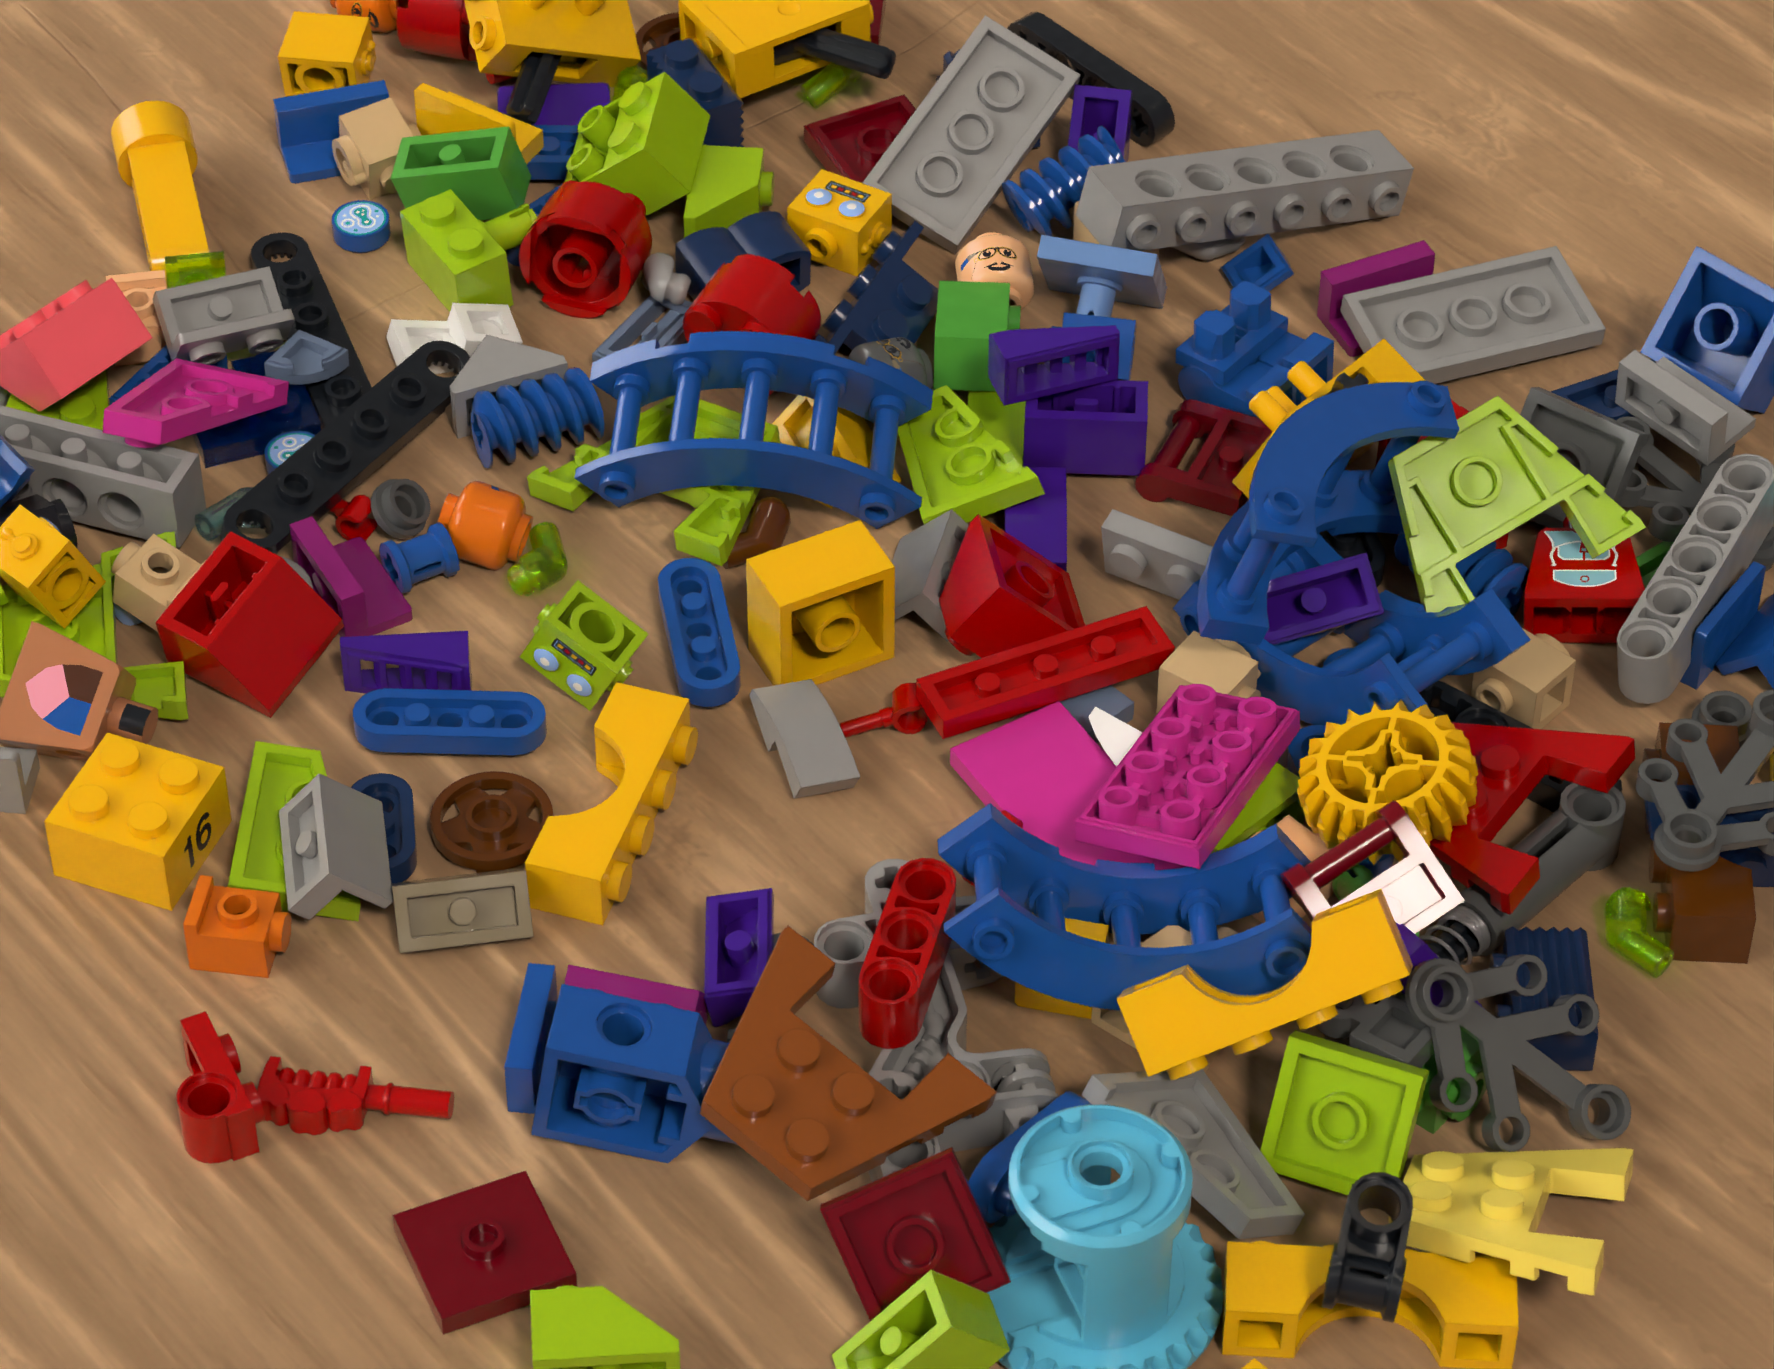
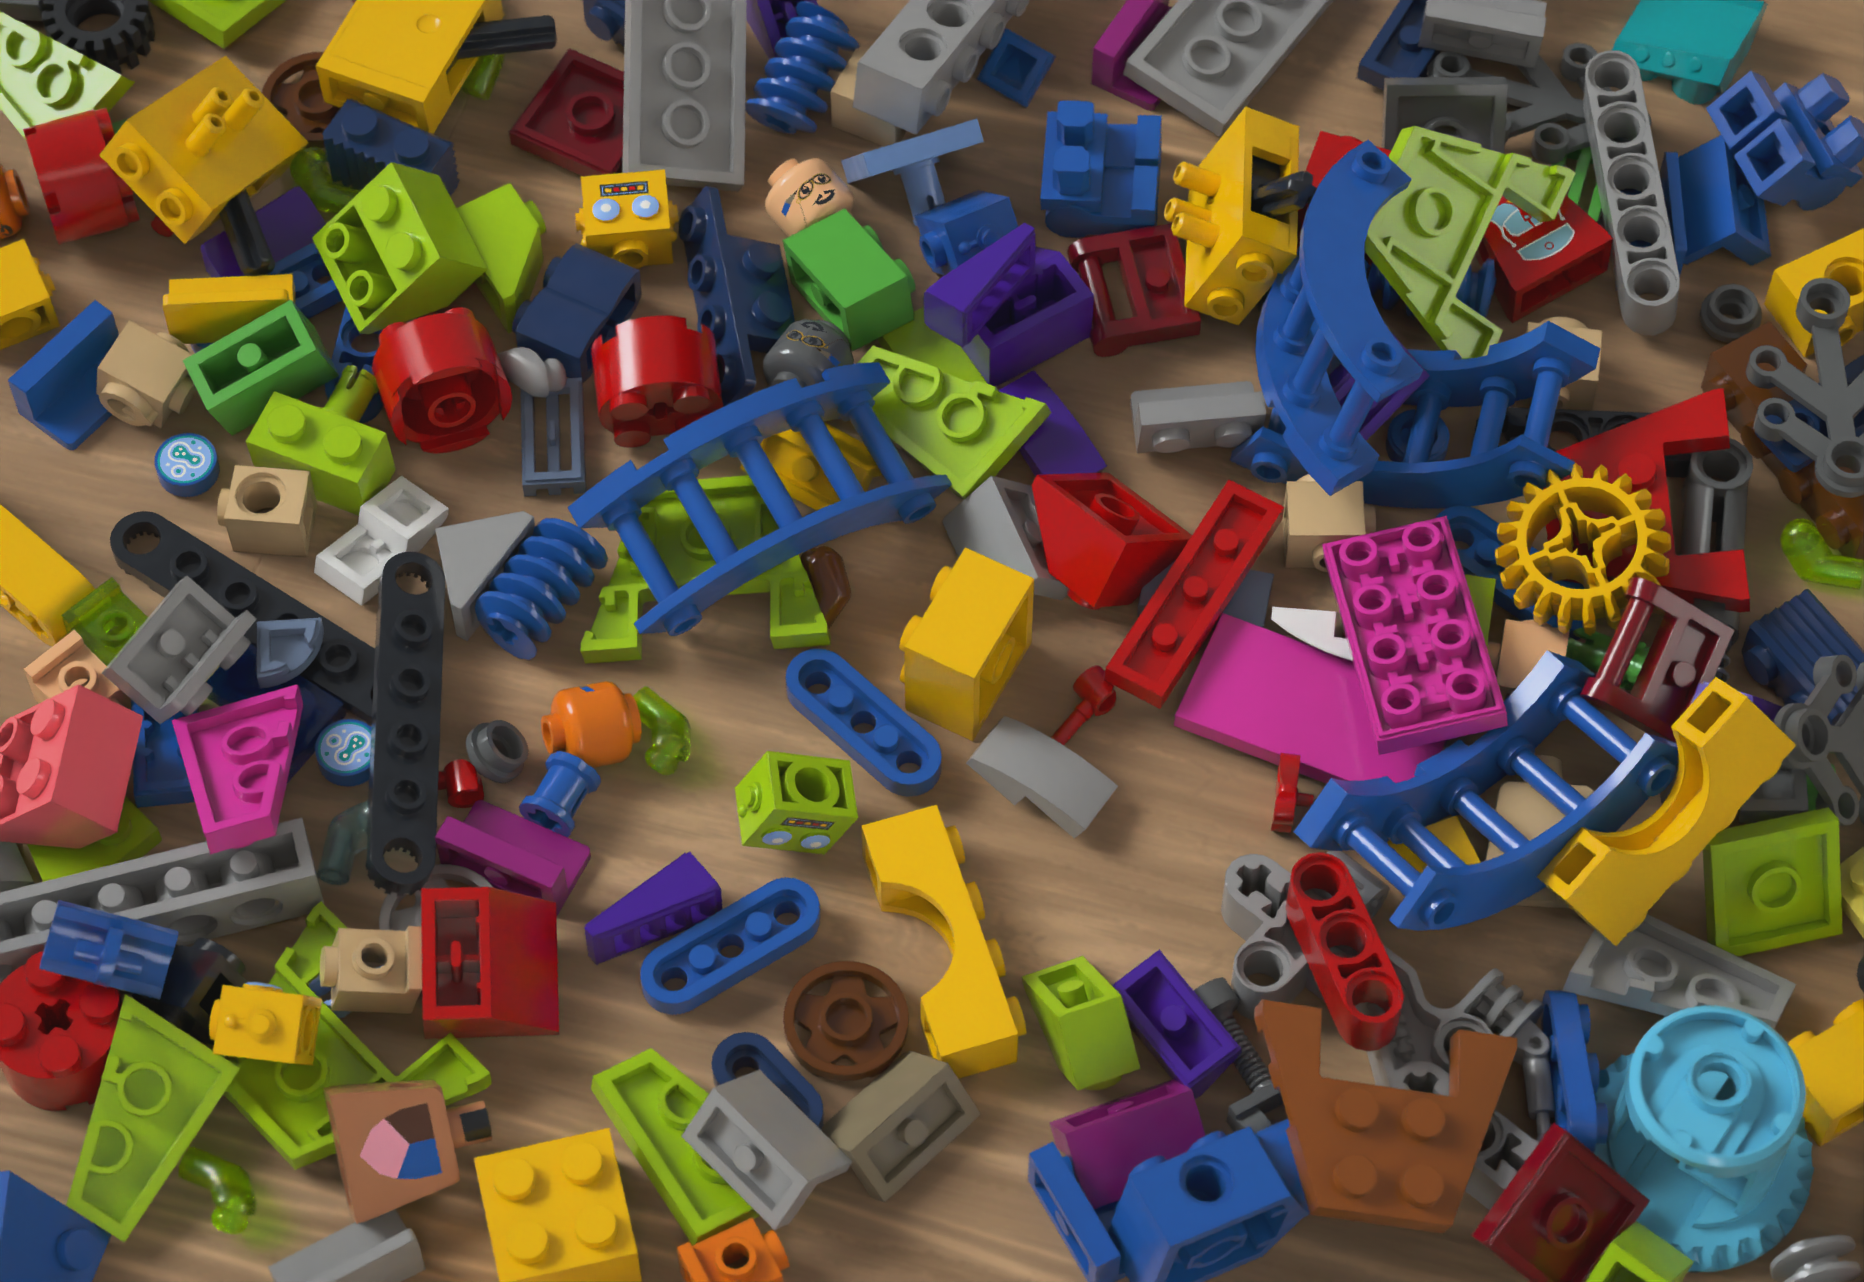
camera: 35 degrees left, 15 degrees up
(387, 276) = (279, 531): none -> tan brick
(664, 917) = (1083, 1023): none -> lime slope

